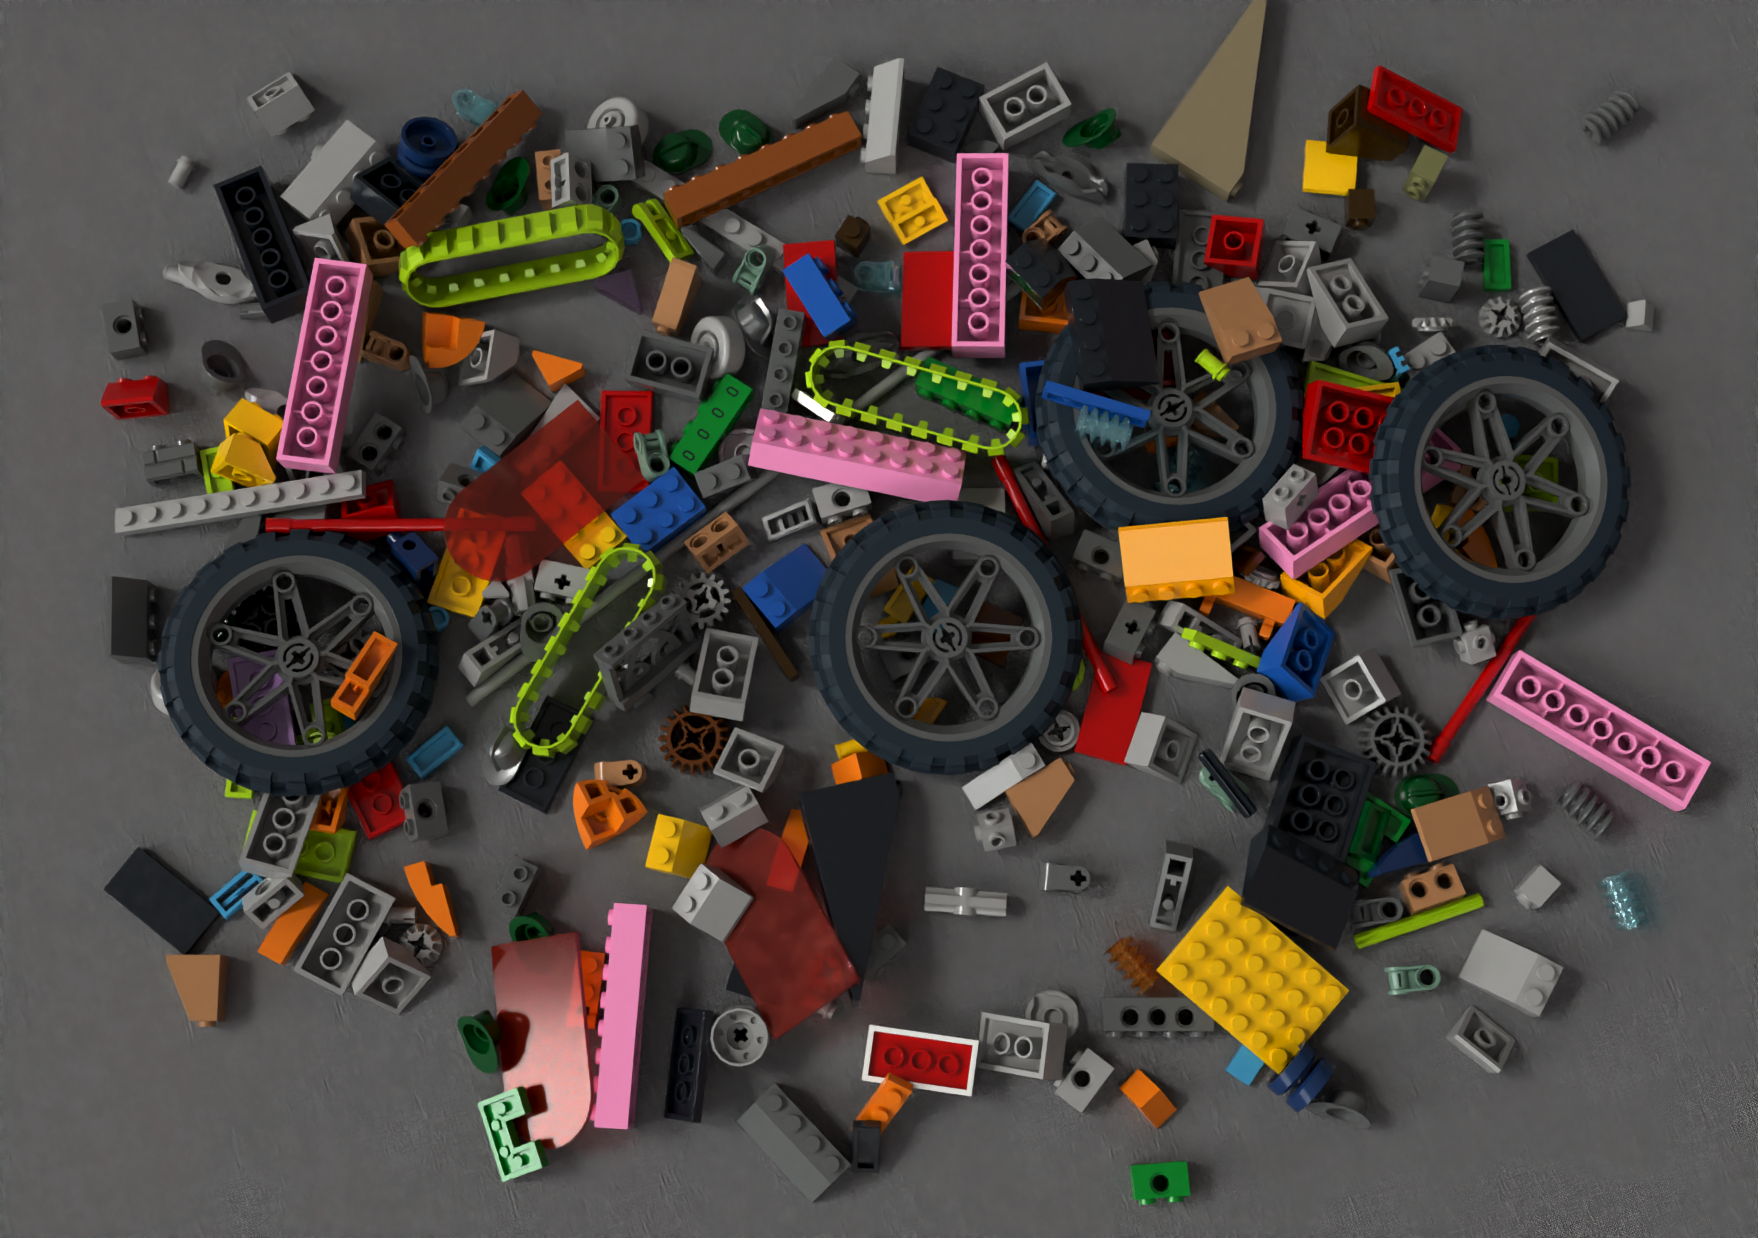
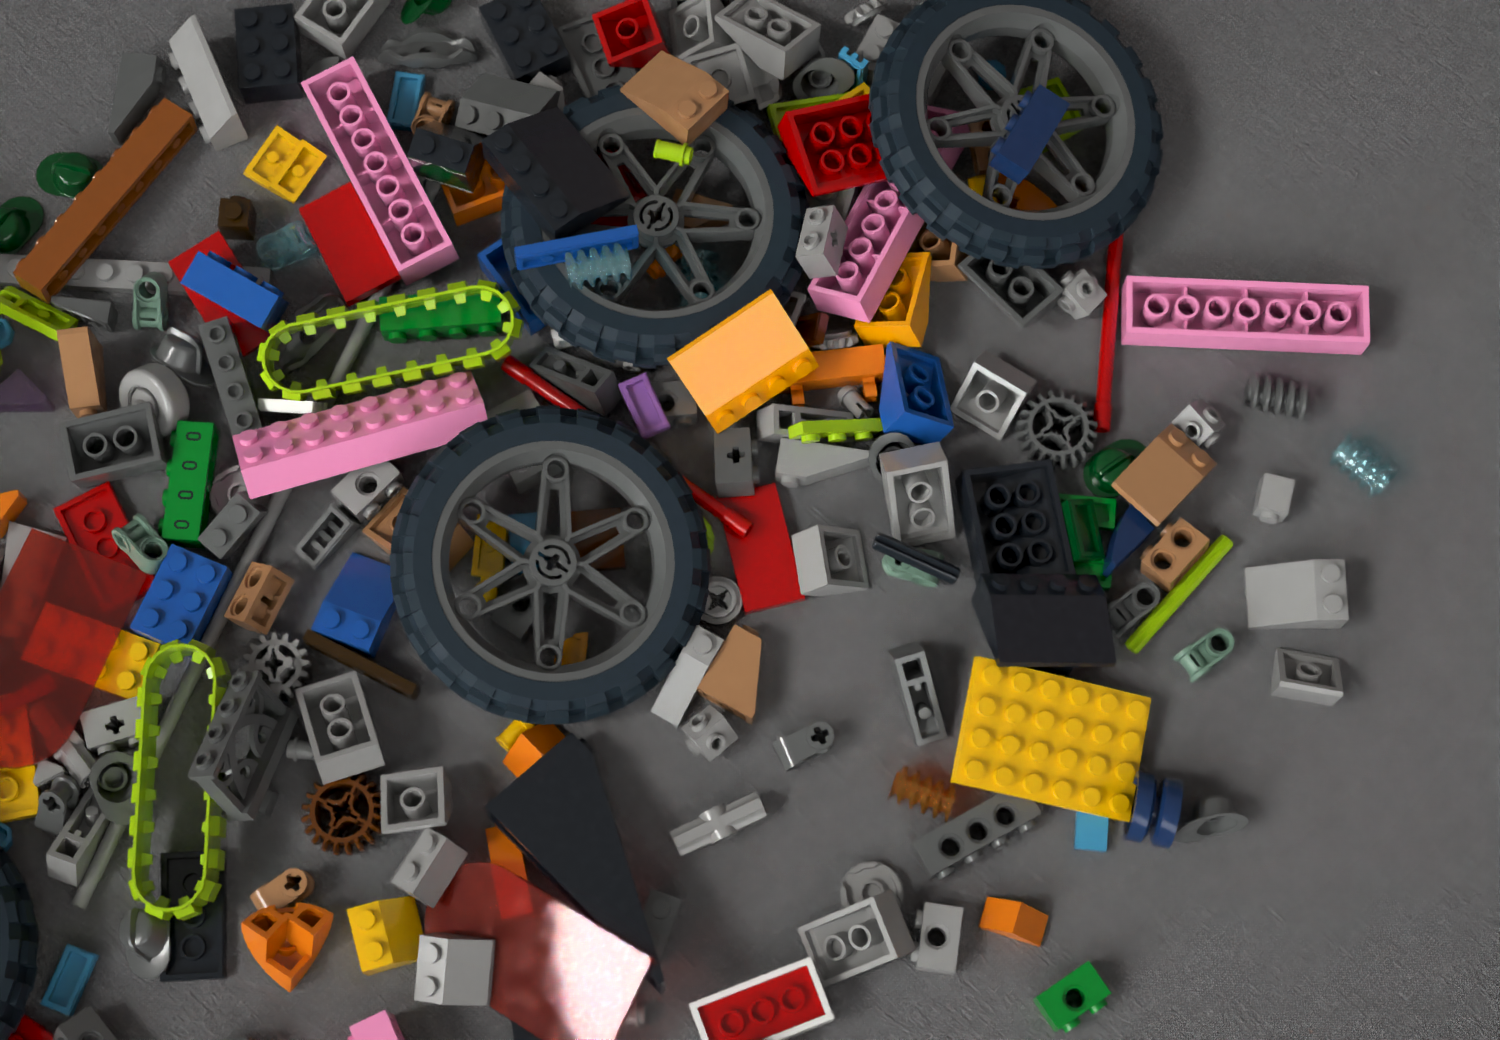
camera: 35 degrees left, 5 degrees down
(1083, 550) = (644, 406): none -> medium lavender tile
(1501, 498) = (1028, 133): none -> dark blue brick

